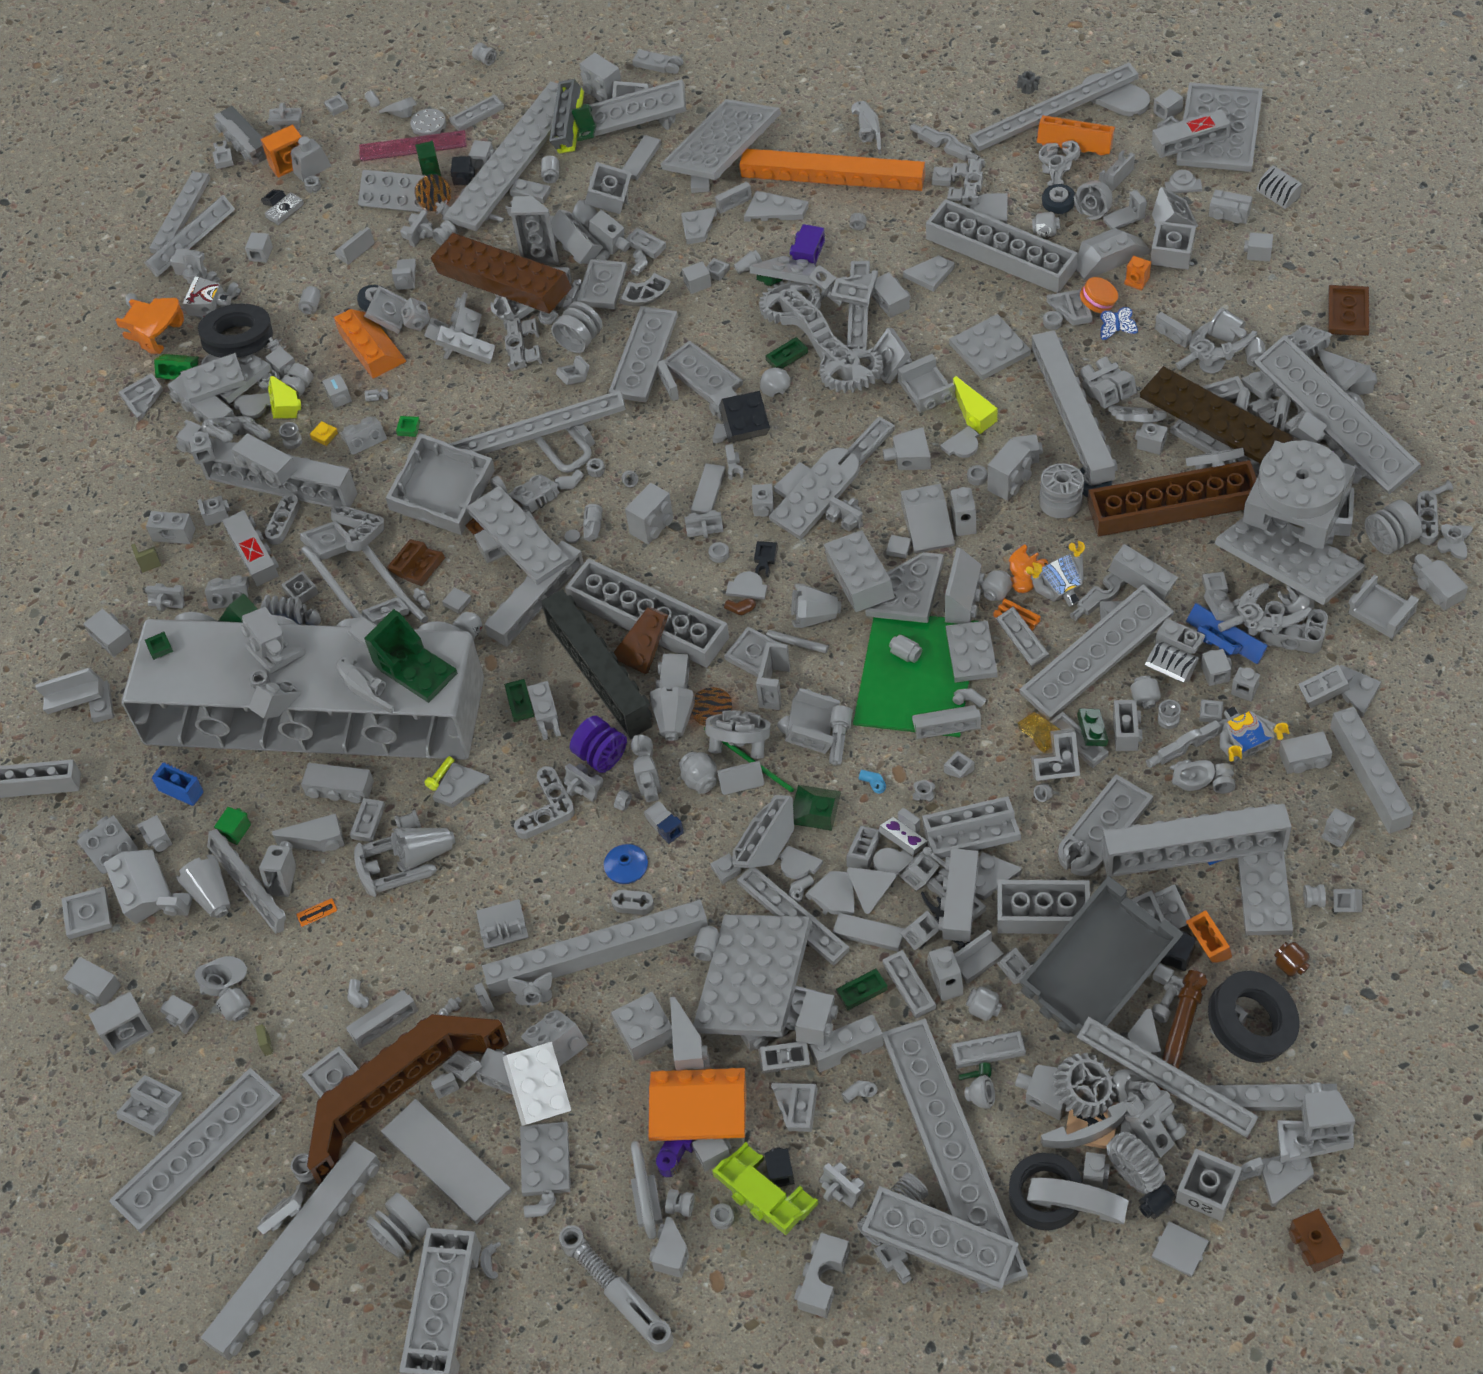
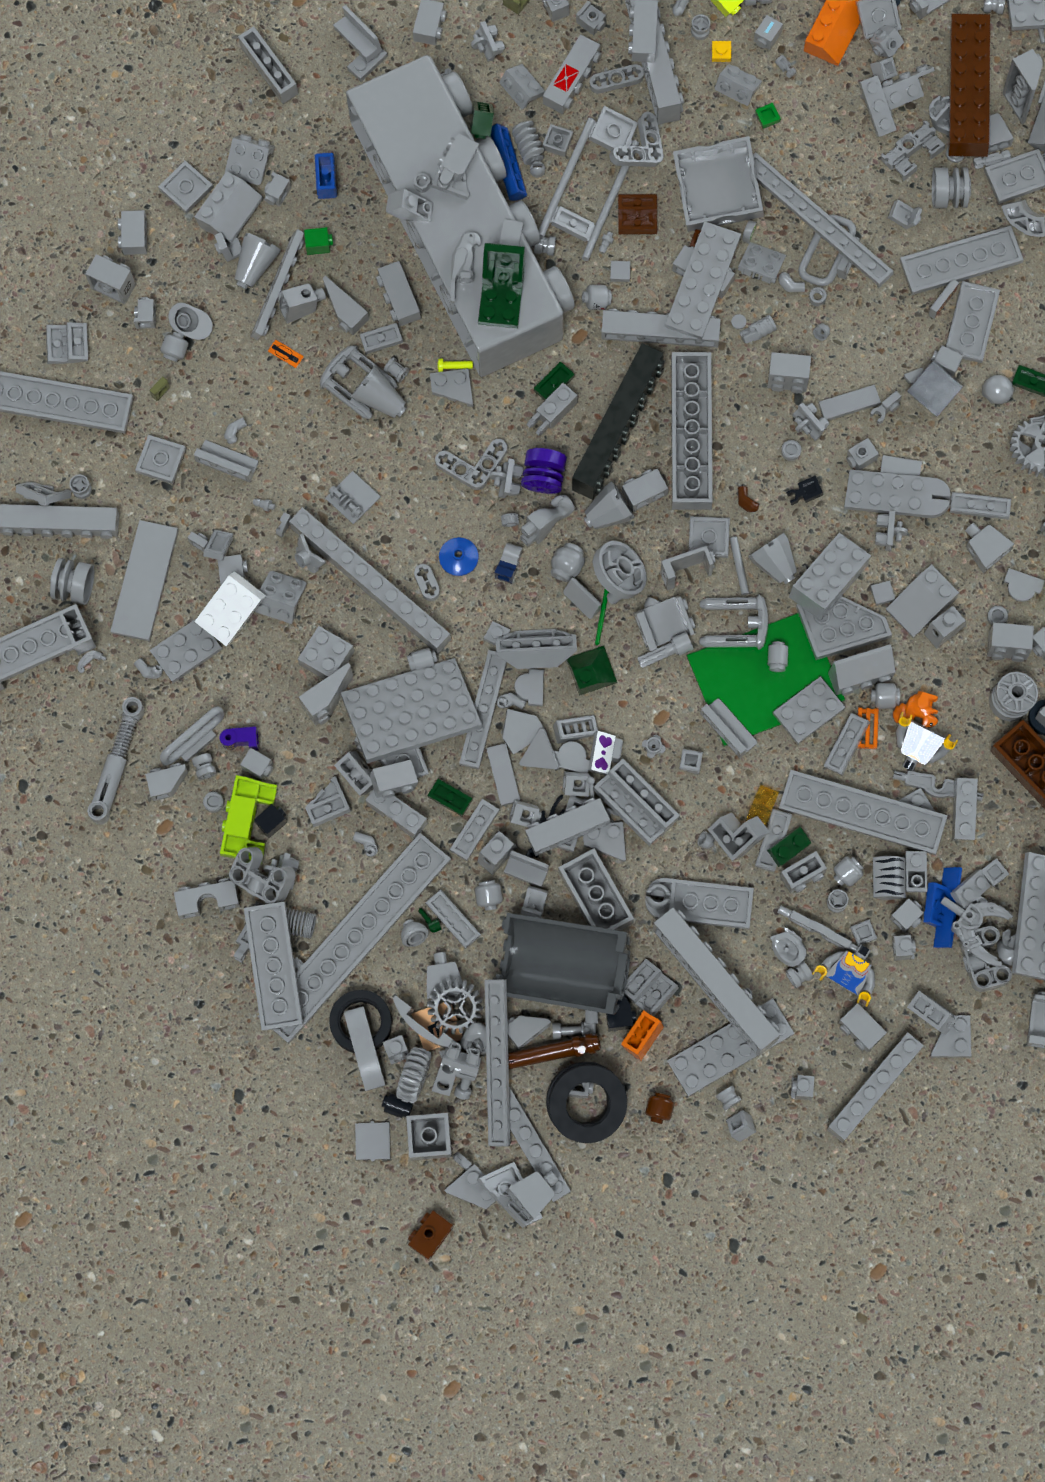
camera: 55 degrees right, 20 degrees up
(158, 645) = (406, 84): dark green plate -> none
(390, 1076) = (173, 497): reddish brown slope -> none
(641, 642) = (658, 445): reddish brown wing -> none
(697, 1104) = (281, 734): orange slope -> none
(709, 703) = (638, 534): clear orange tile -> none
(747, 585) = (769, 494): light grey piece -> none
(842, 1207) = (255, 882): none -> light grey beam
(861, 646) = (738, 603): none -> light grey piece
(875, 780) = (642, 702): dark azure arm -> none
(968, 694) = (763, 731): light grey arm -> none

